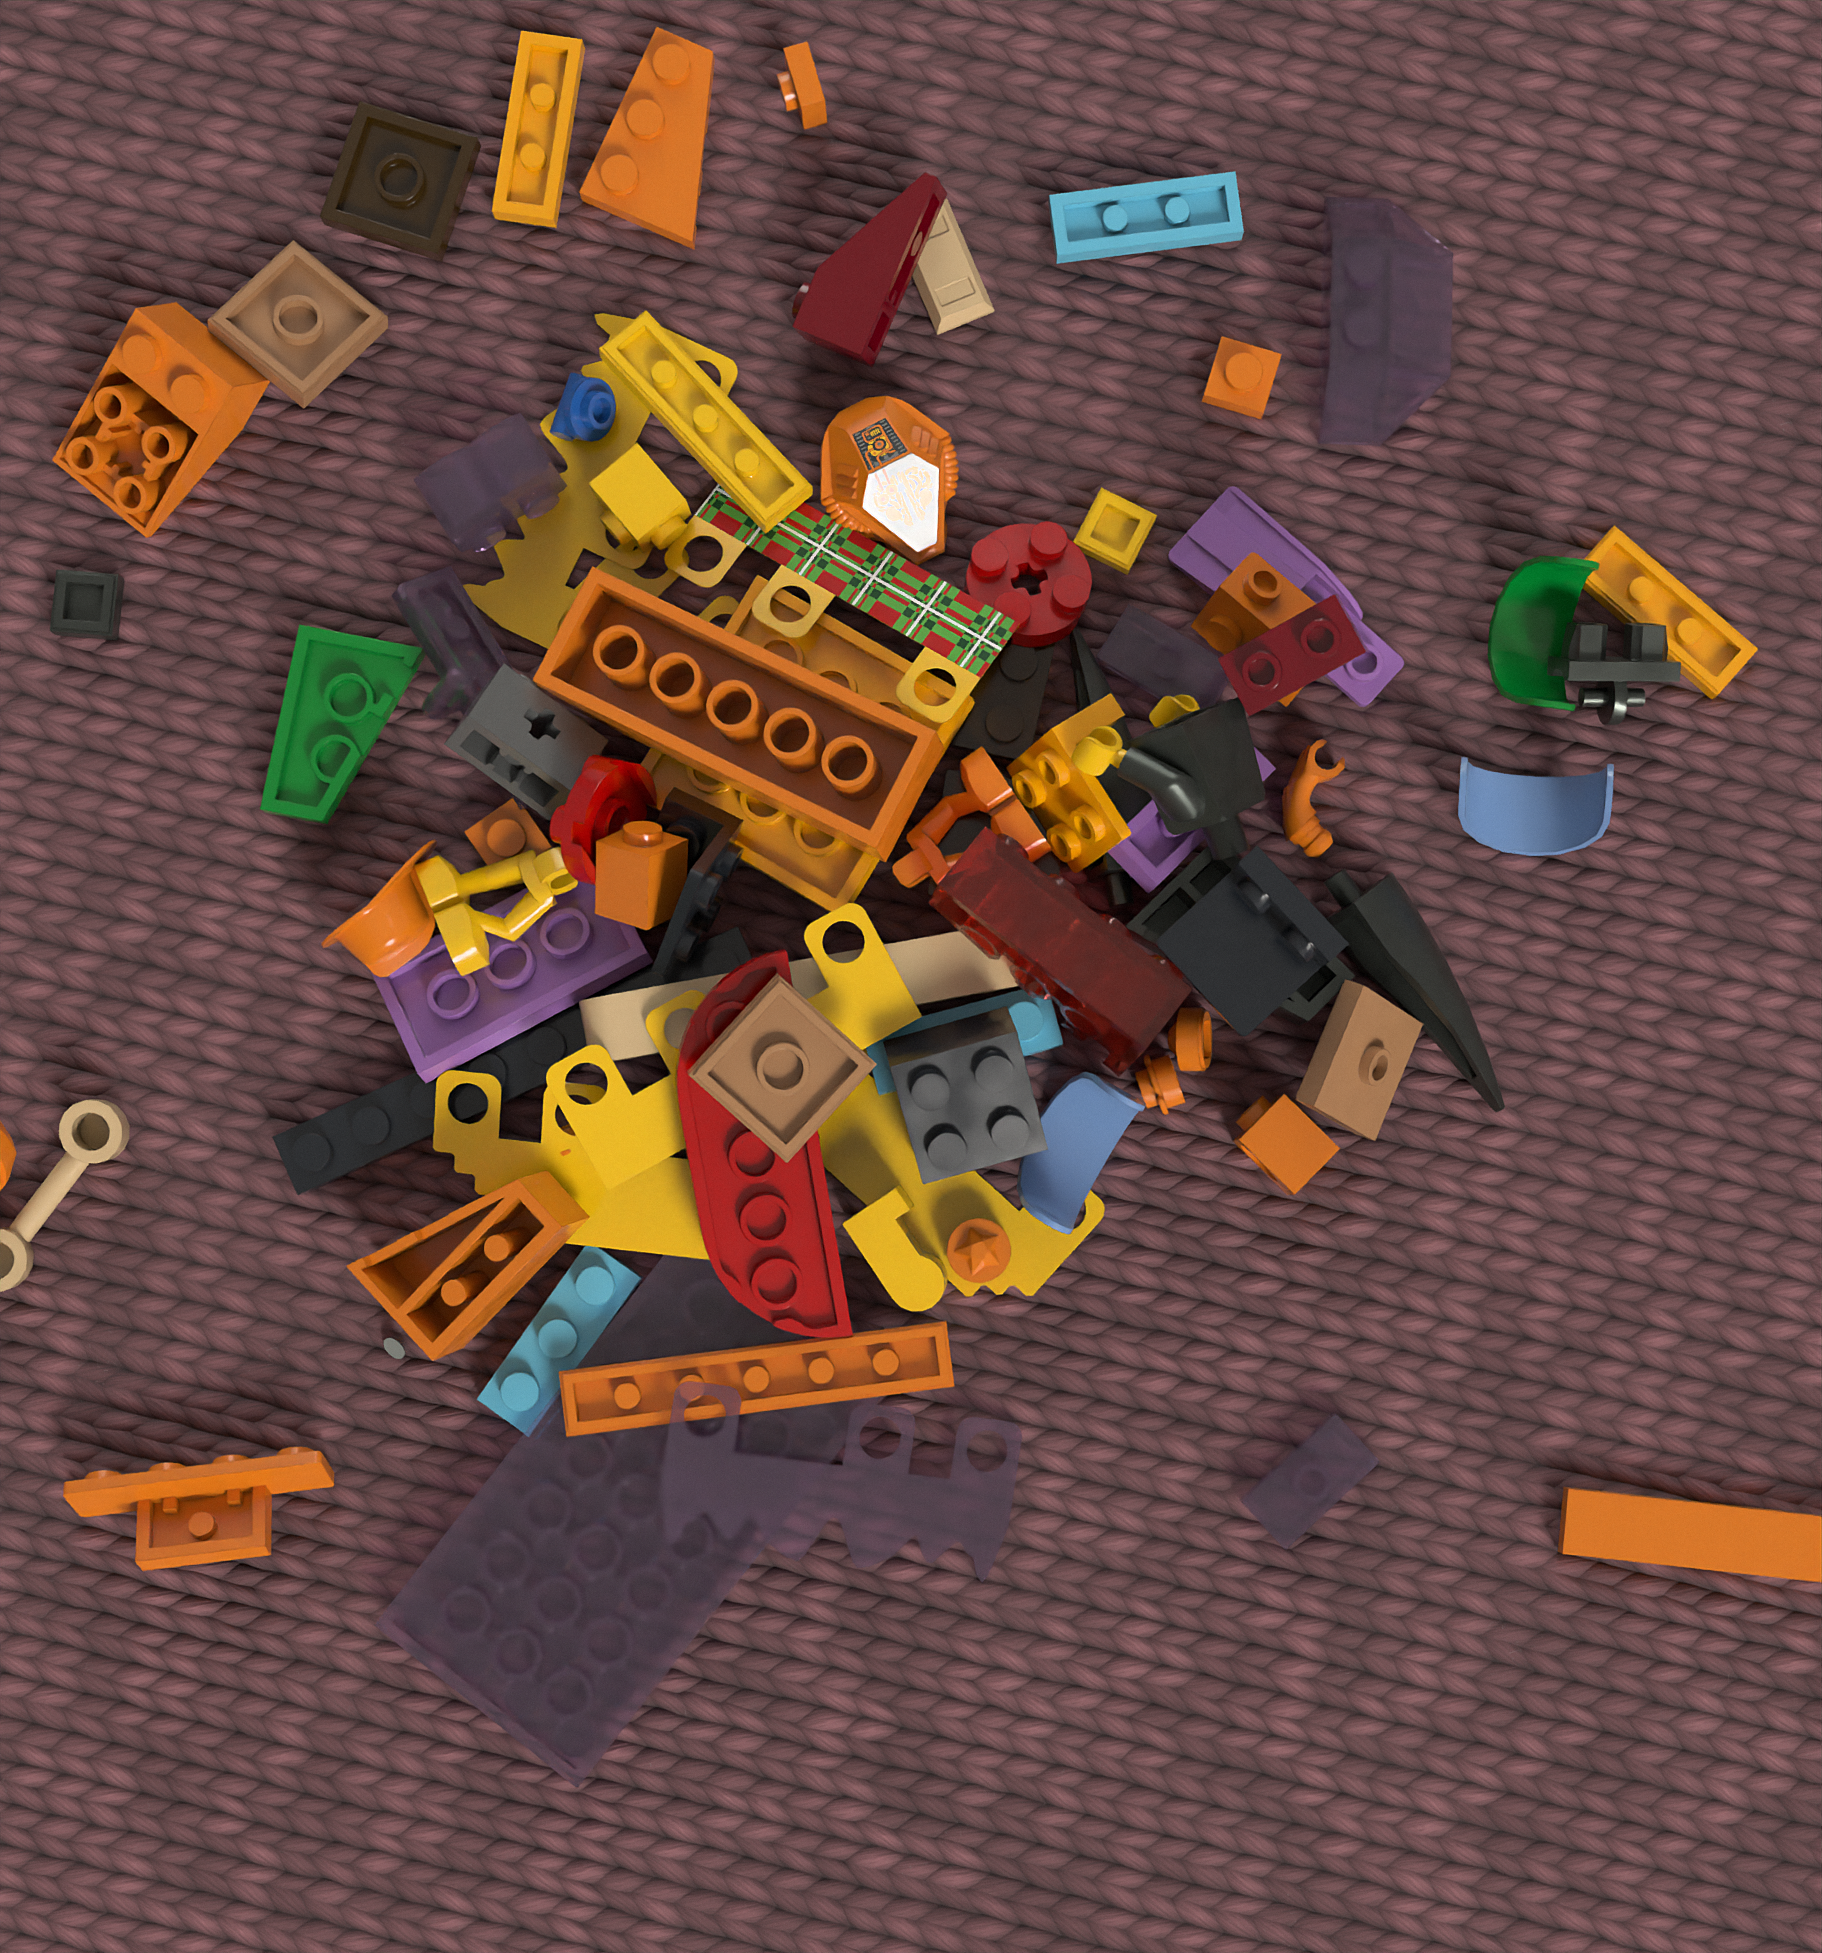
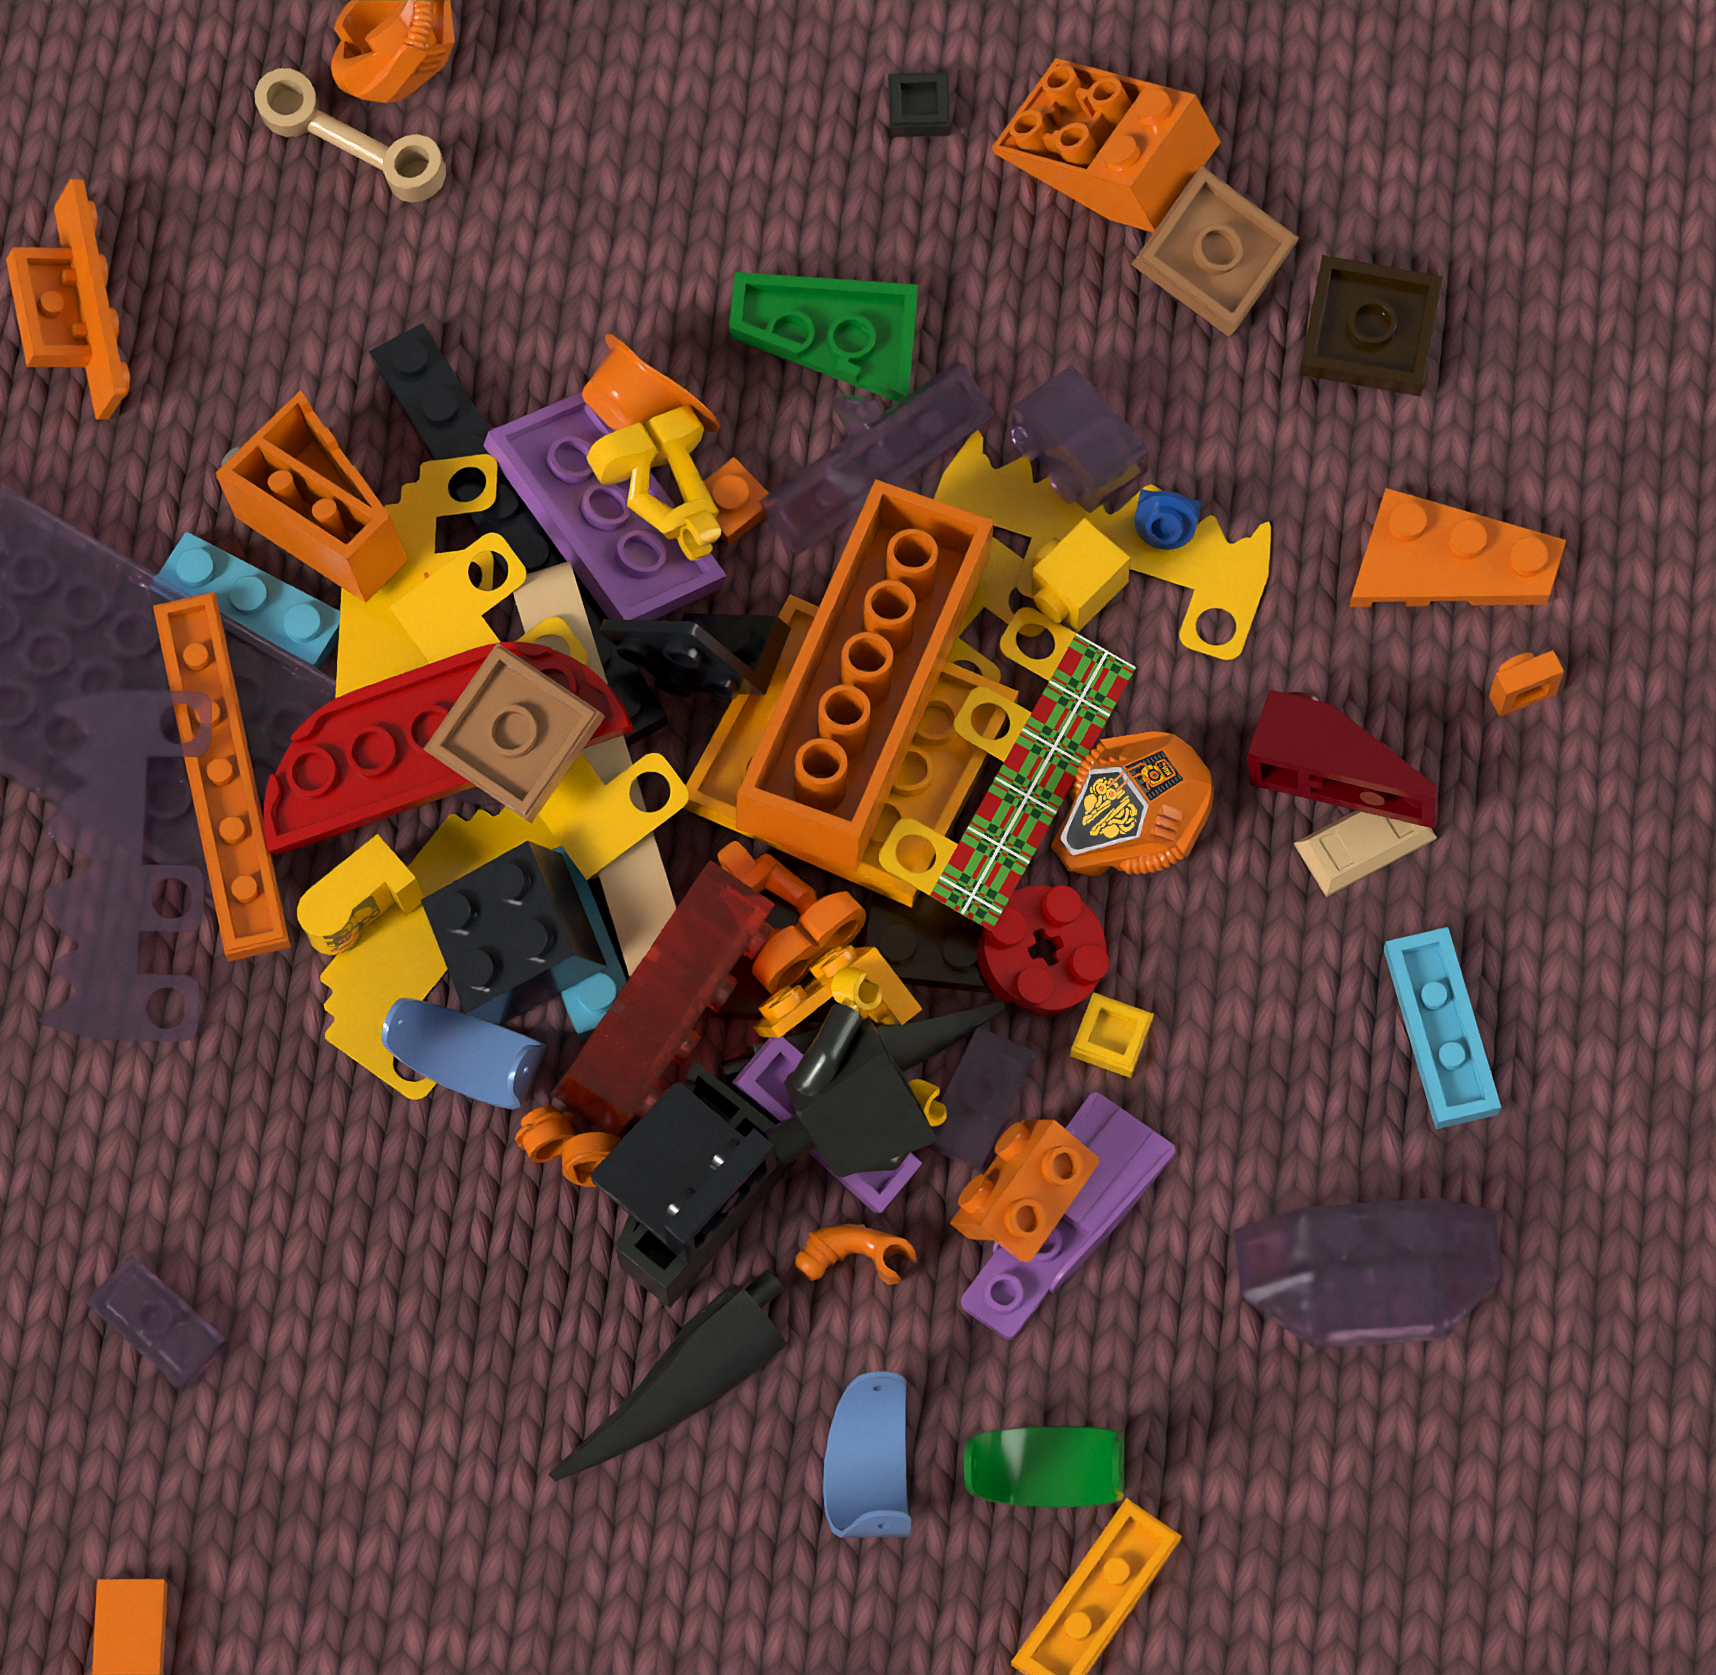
camera: 80 degrees right, 15 degrees down
(525, 740) = (795, 509): dark grey brick -> none
(538, 129) = (1443, 443): light orange plate -> none
(599, 805) = (753, 540): red plate -> none
(640, 874) = (700, 592): orange brick -> none
(706, 421) = (1168, 629): yellow tile -> none
(978, 1250) = (365, 977): orange tile -> none
(1241, 377) = (1289, 1144): orange plate -> none
(1283, 1142) = (496, 1257): orange brick -> none
(1293, 654) = (984, 1185): dark red brick -> none
(1359, 1060) = (583, 1315): medium nougat plate -> none
(1586, 660) = (1024, 1511): pearl dark grey hips -> none

